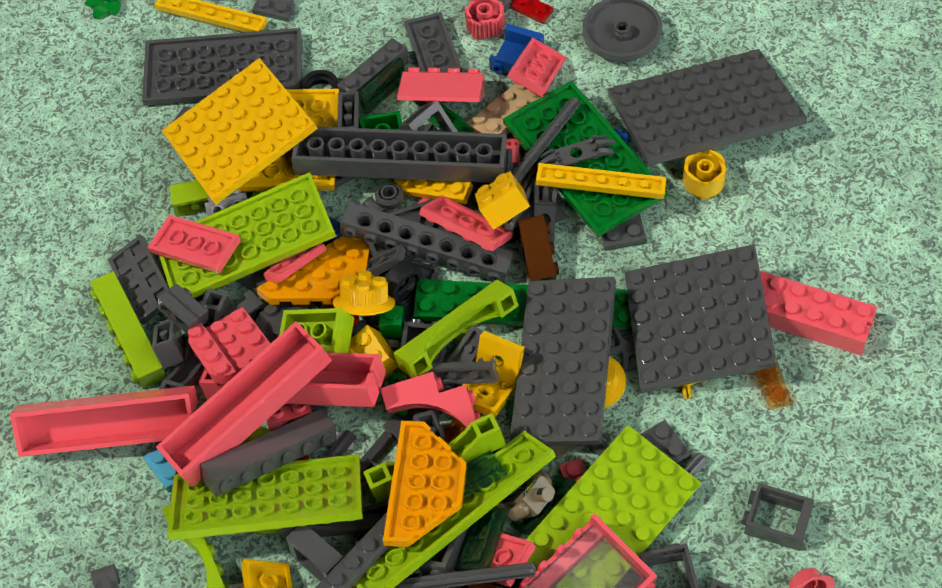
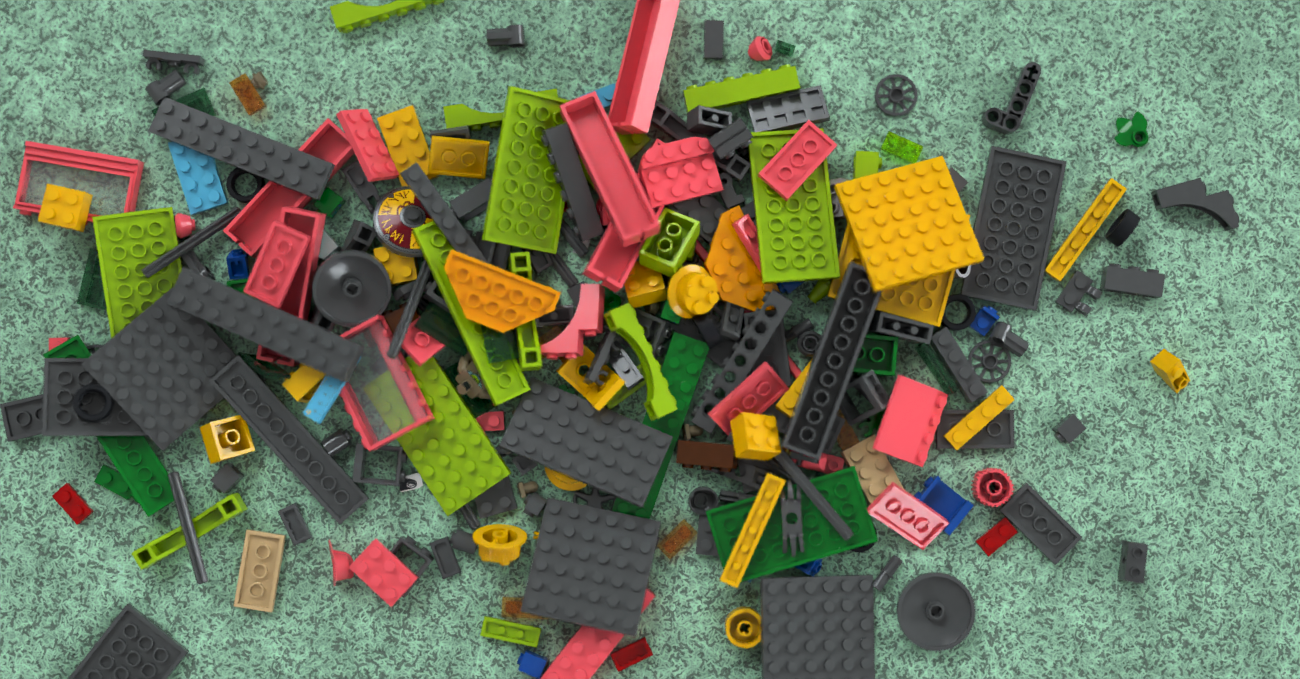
camera: 105 degrees right, 30 degrees up
(72, 301) = (784, 48): none -> clear green tile
(73, 374) = (713, 39): none -> dark grey tile
(77, 323) = (760, 49): none -> coral cone
(105, 196) = (895, 95): none -> dark grey wheel
(108, 93) = (1016, 97): none -> dark grey beam
(160, 174) = (901, 147): none -> clear neon green plate
(314, 63) = (984, 320): none -> blue bracket
(331, 203) = (820, 290): none -> lime cone
(336, 42) = (1004, 337): none -> dark grey piece
(361, 53) = (989, 361): none -> dark grey wheel
(421, 42) = (978, 417): none -> yellow plate
(517, 276) = (691, 431): none -> dark tan piece
(573, 220) = (729, 496): none -> dark grey axle
(587, 245) = (702, 499): none -> dark grey hair
(600, 78) = (887, 573): none -> dark grey axle
(612, 426) = (523, 464): none -> dark grey plate
(634, 259) = (677, 539): none -> clear orange plate
(640, 419) = (526, 488): none -> dark tan piece
(653, 401) = (534, 504): none -> dark grey plate
(677, 537) = (411, 482): none -> sticker
(709, 416) = (499, 543): none -> yellow piece
(723, 460) = (463, 541): none -> dark grey brick
(749, 478) = (445, 557): none -> dark grey tile
(774, 264) = (631, 654): none -> red plate
(794, 527) = (383, 572): none -> coral plate
(804, 387) = (510, 631): none -> lime plate
(830, 354) = (531, 663): none -> blue brick

